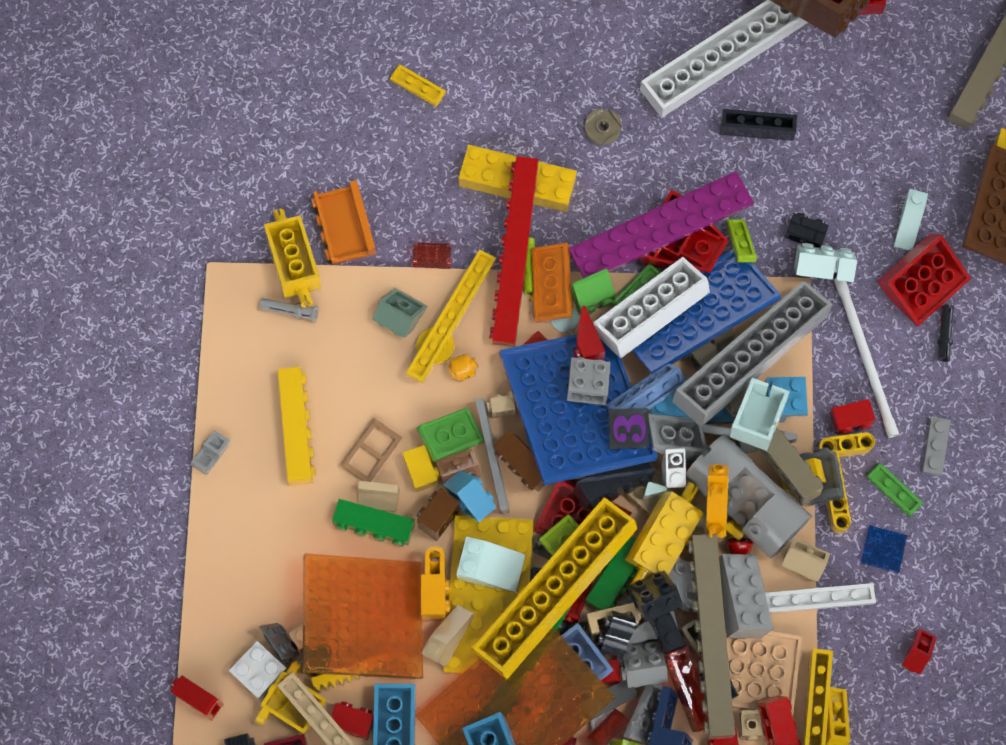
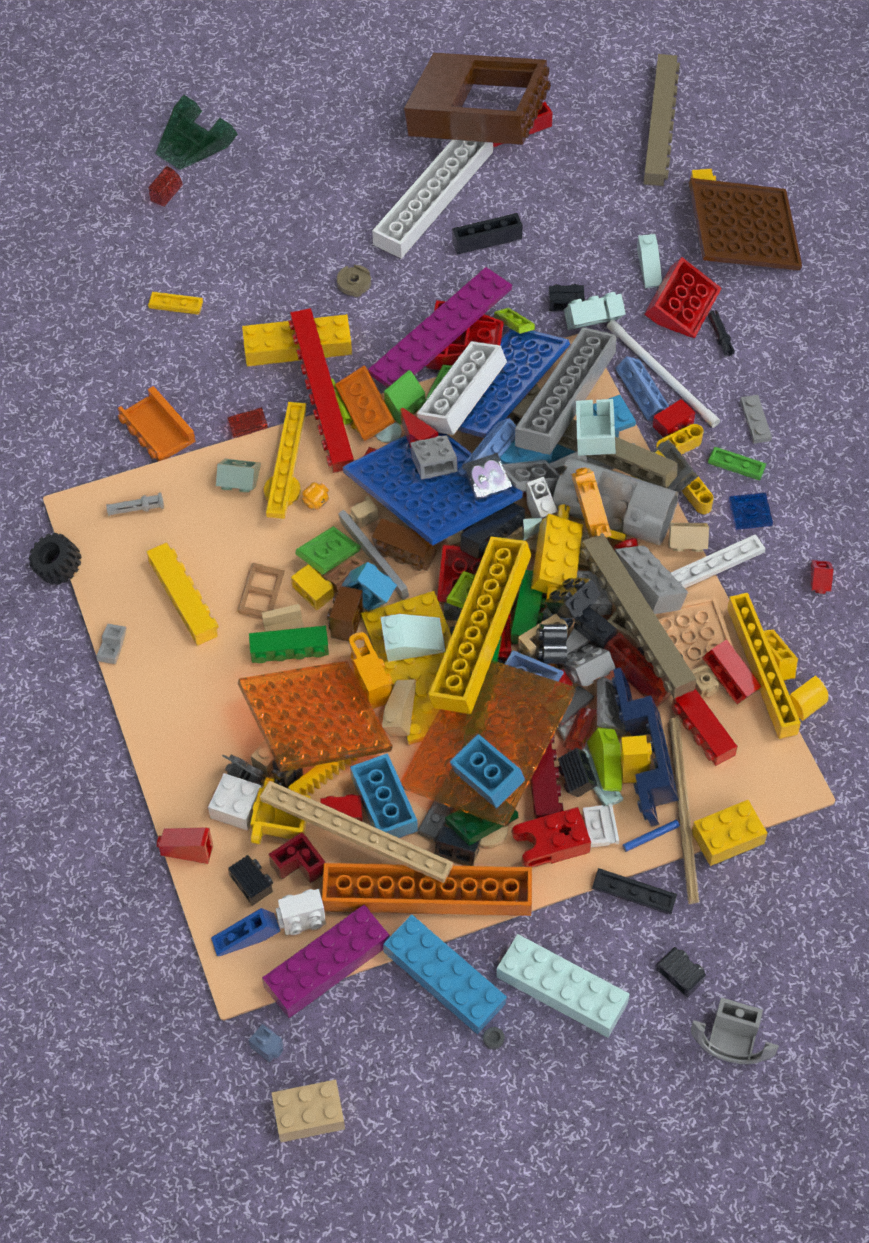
camera: 20 degrees left, 15 degrees down
(181, 332) = (63, 566): none -> black tyre
(292, 257) = (121, 462): yellow brick -> none
(834, 366) = (641, 387): none -> medium blue fence

